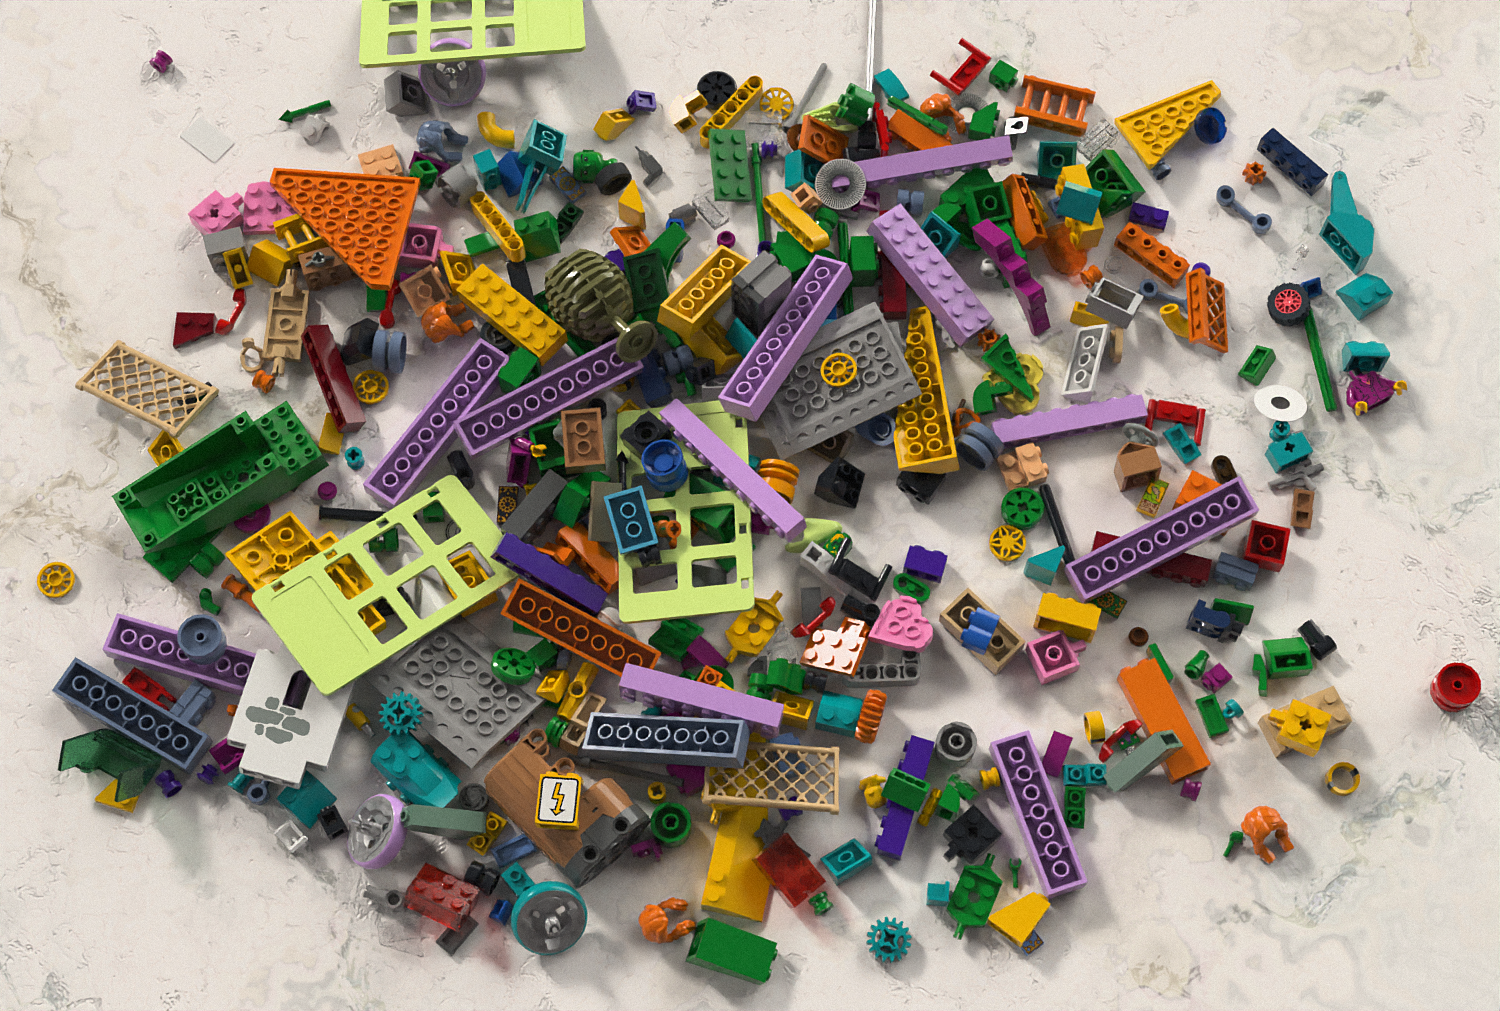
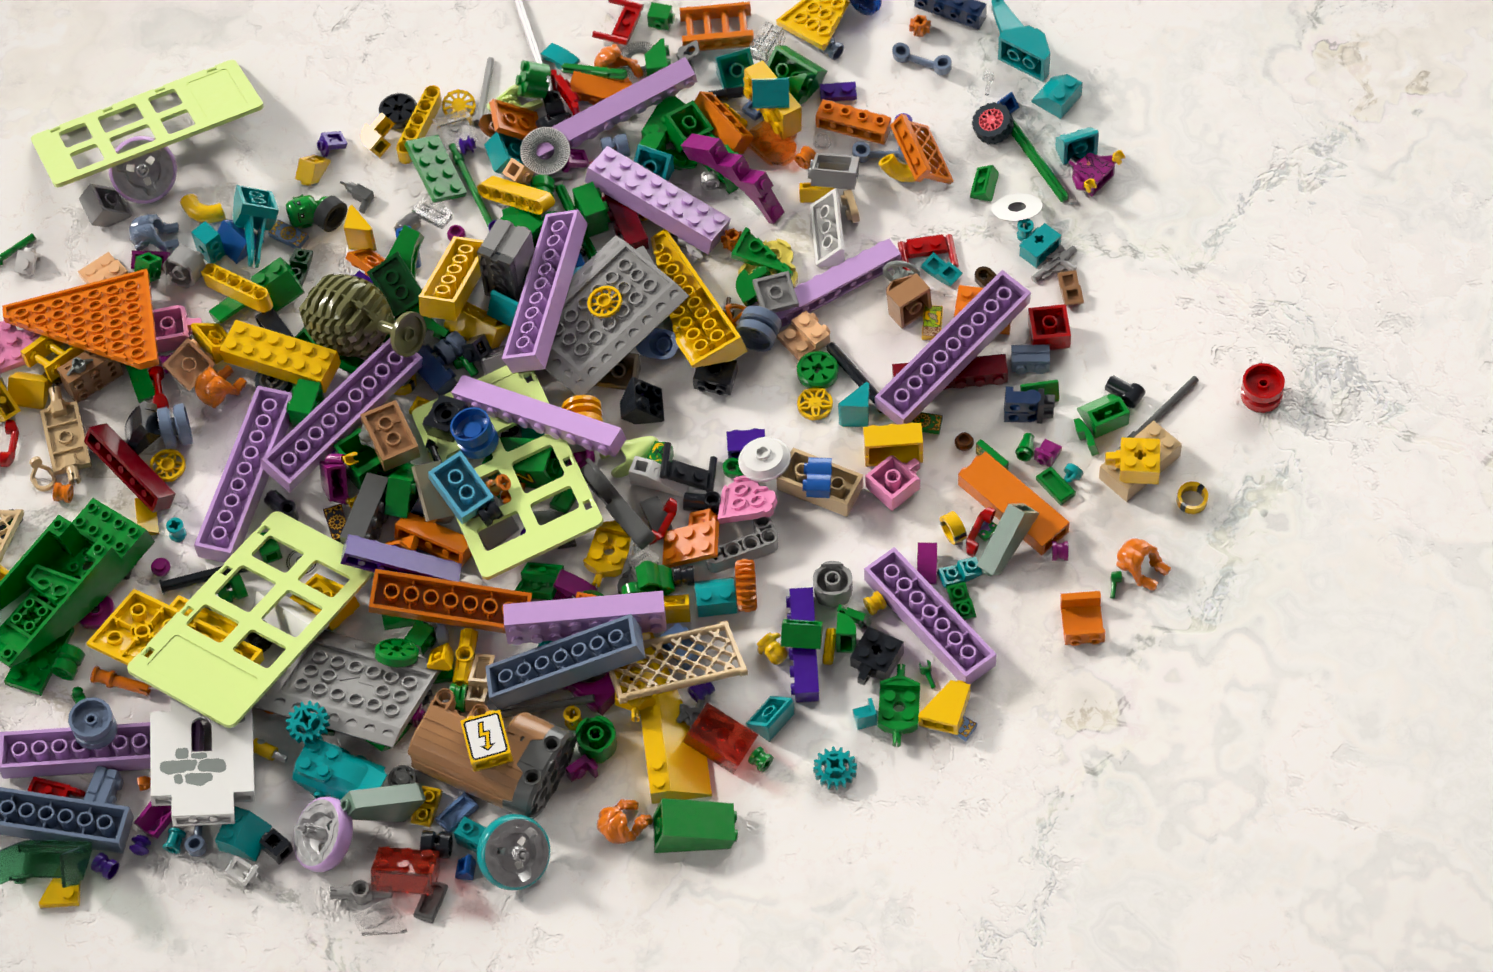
camera: 15 degrees left, 10 degrees down
(218, 477) = (51, 583): none -> green wing
(776, 588) = (617, 506): none -> dark grey beam
(935, 589) = (764, 459): none -> white piece
(1009, 415) = (776, 292): none -> light grey tile
(1186, 869) = (1082, 618): none -> orange panel
(1343, 675) = (1165, 407): none -> dark grey bar

